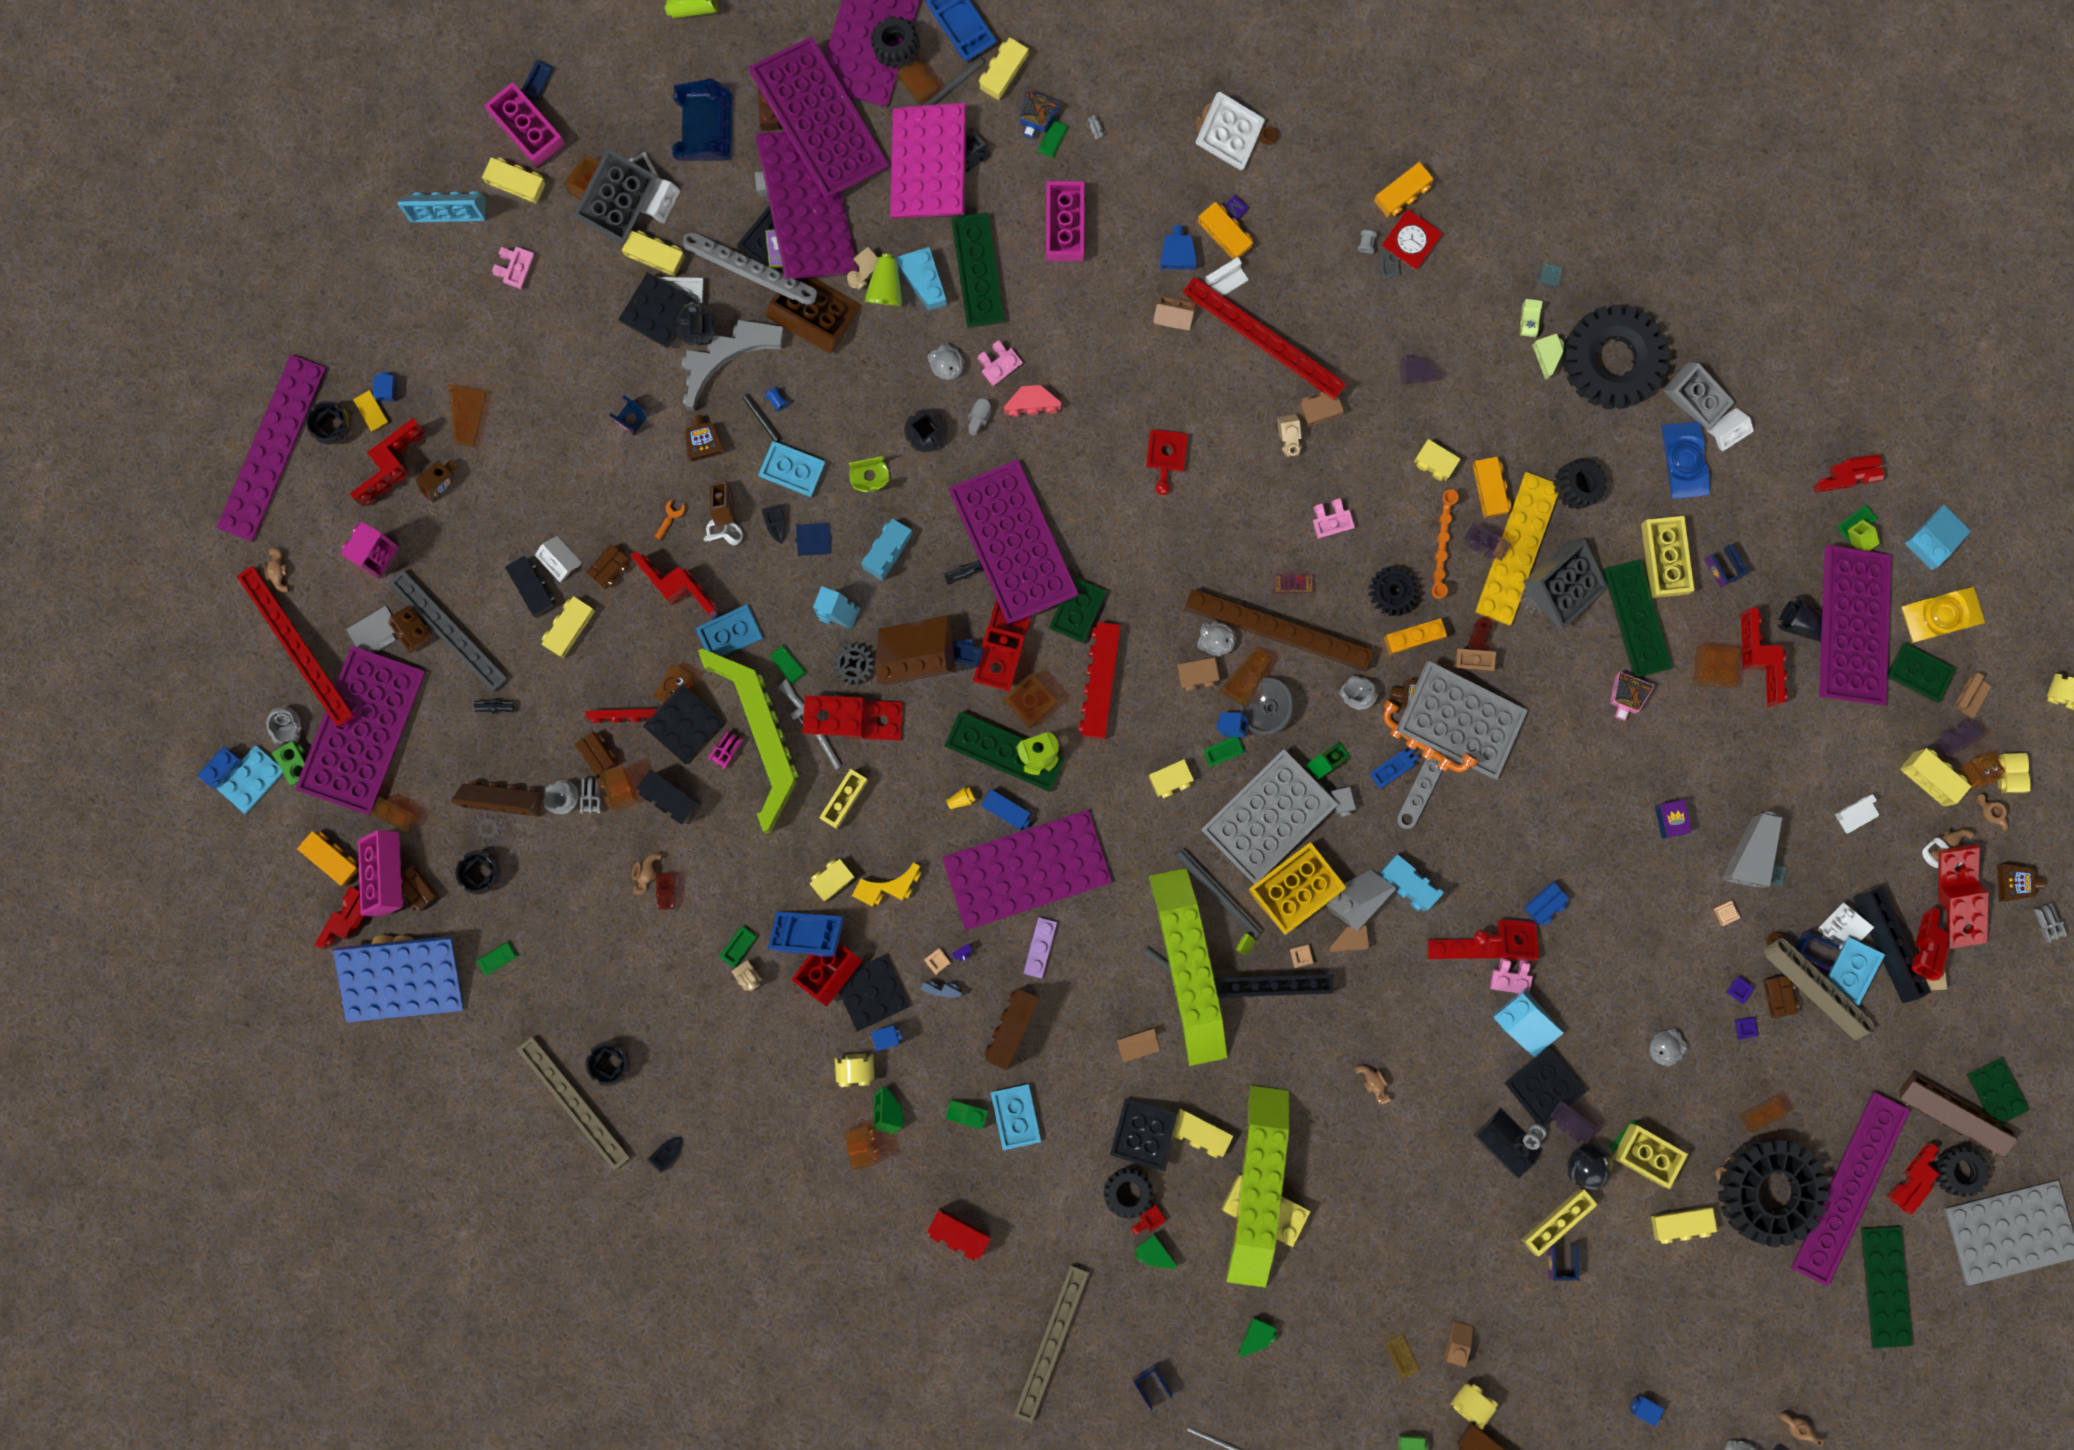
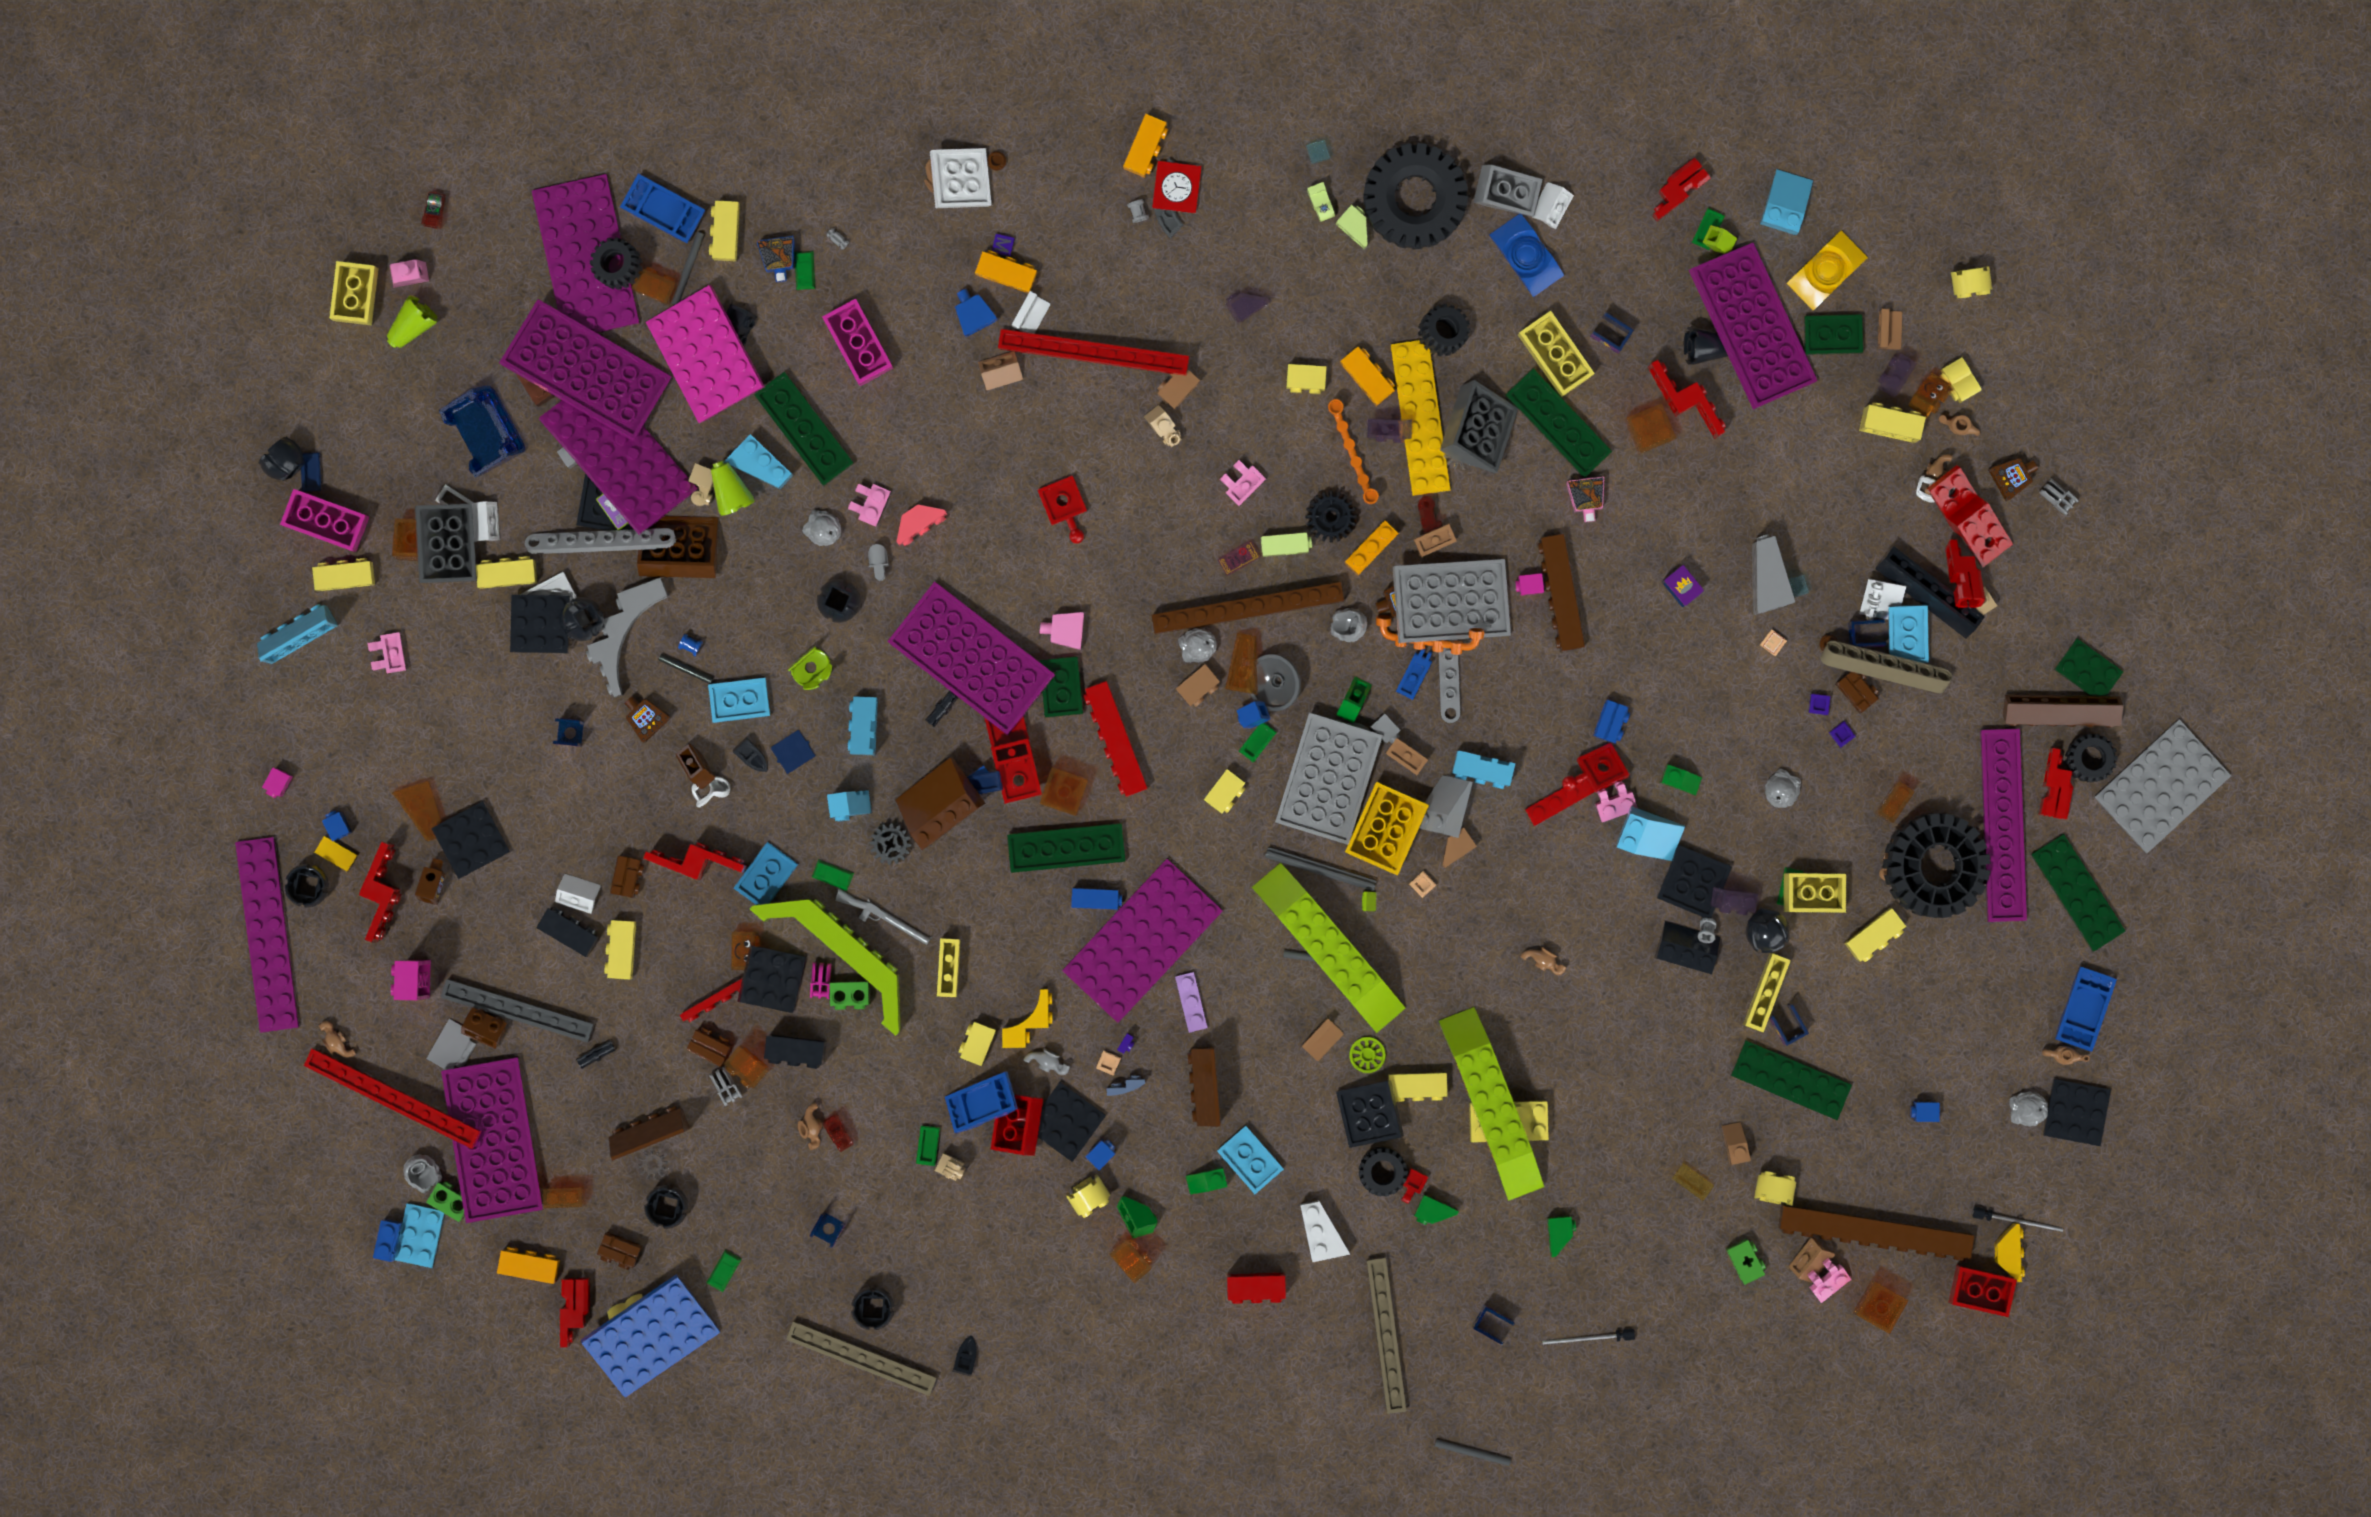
camera: 25 degrees left, 5 degrees up
(355, 323) = (277, 782): none -> dark pink brick
(380, 873) = (582, 1254): dark pink brick -> none
(492, 462) = (470, 840): none -> black plate
(518, 53) = (282, 460): none -> black piece
(560, 797) = (700, 1101): light grey hair -> none
(600, 966) = (818, 1229): none -> clear blue piece
(667, 522) = (655, 806): orange piece -> none
(746, 771) = (849, 989): none -> bright green brick
(852, 718) = (916, 892): red bracket -> none
(885, 930) = (1047, 1061): none -> light grey piece
(961, 798) = (1051, 909): yellow cone -> none
(1037, 761) = (1099, 844): lime piece -> none
(1042, 1219) = (1321, 1234): none -> white wedge
(1108, 562) = (1065, 629): none -> bright pink torso
(1170, 1081) = (1367, 1055): none -> lime wheel
(1274, 985) = (1411, 924): black brick -> none
(1341, 593) = (1285, 544): none -> yellowish green brick
(1348, 834) = (1406, 756): none -> medium nougat panel
(1537, 744) = (1530, 584): none -> dark pink brick
(1538, 1314) = (1791, 1080): none -> dark green plate
(1562, 767) = (1562, 593): none -> reddish brown brick
(1581, 989) = (1680, 779): none -> green slope
(1840, 1396) = (2085, 1009): none -> blue slope
(1857, 814) = (1842, 491): white panel -> none

